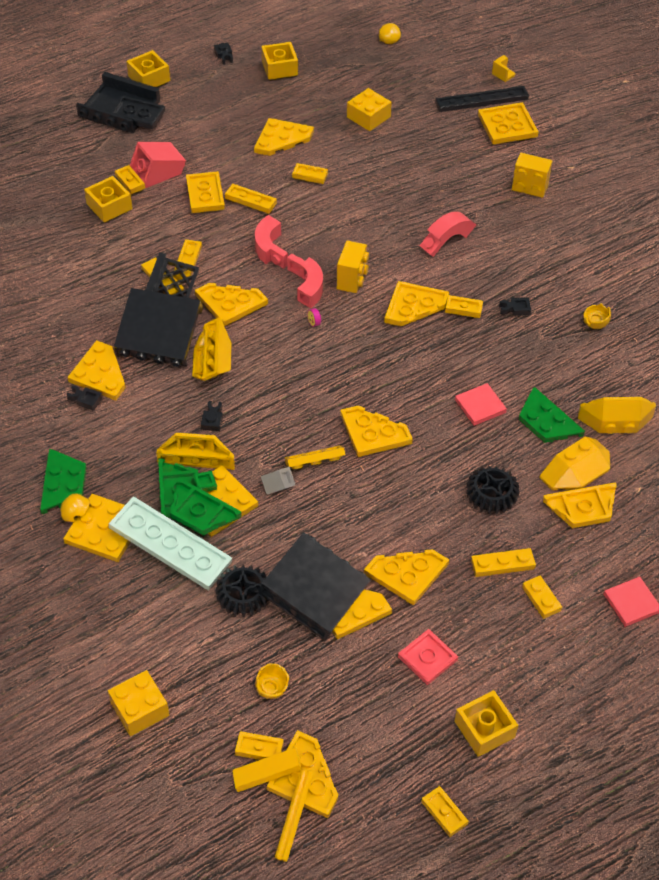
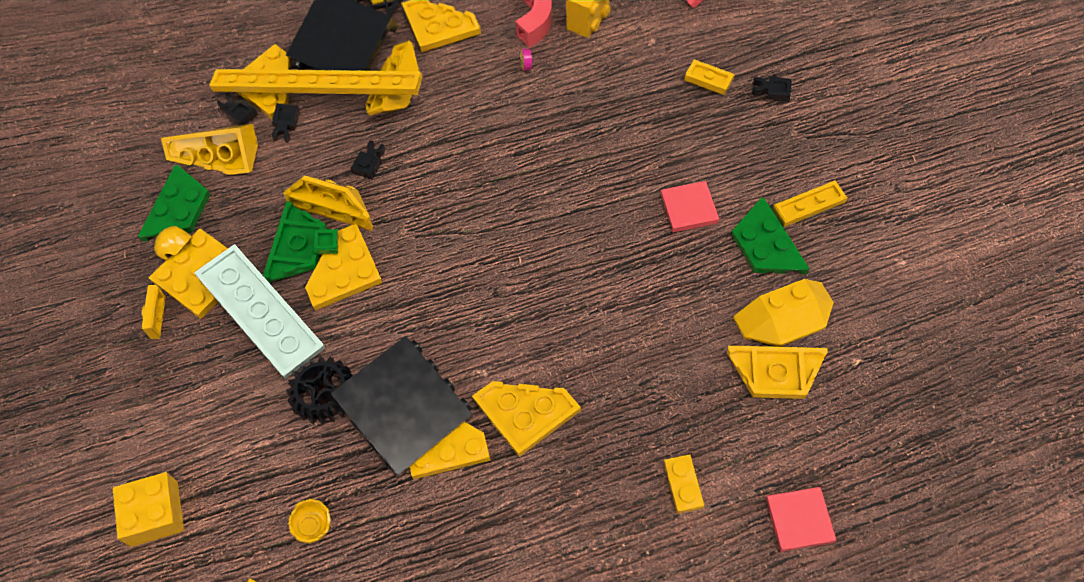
camera: 20 degrees right, 10 degrees up
(78, 562) = (153, 312): none -> yellow plate
(84, 430) = (220, 149): none -> yellow wedge
(130, 398) = (284, 118): none -> black plate
(151, 361) = (317, 81): none -> yellow plate
(200, 509) = (306, 276): green wing -> none
(278, 480) = (412, 256): light grey panel -> none
(315, 457) = (465, 235): yellow plate -> none
(373, 432) = (547, 216): yellow plate -> none
(414, 302) = (648, 62): yellow plate -> none
(427, 656) = (513, 532): coral tile -> none
(490, 495) = (676, 315): black gear -> none
(503, 562) = (649, 424): yellow plate -> none
(570, 385) = (809, 203): none -> yellow tile
(597, 316) = (871, 119): yellow hair -> none
(617, 414) = (858, 256): yellow wedge -> none

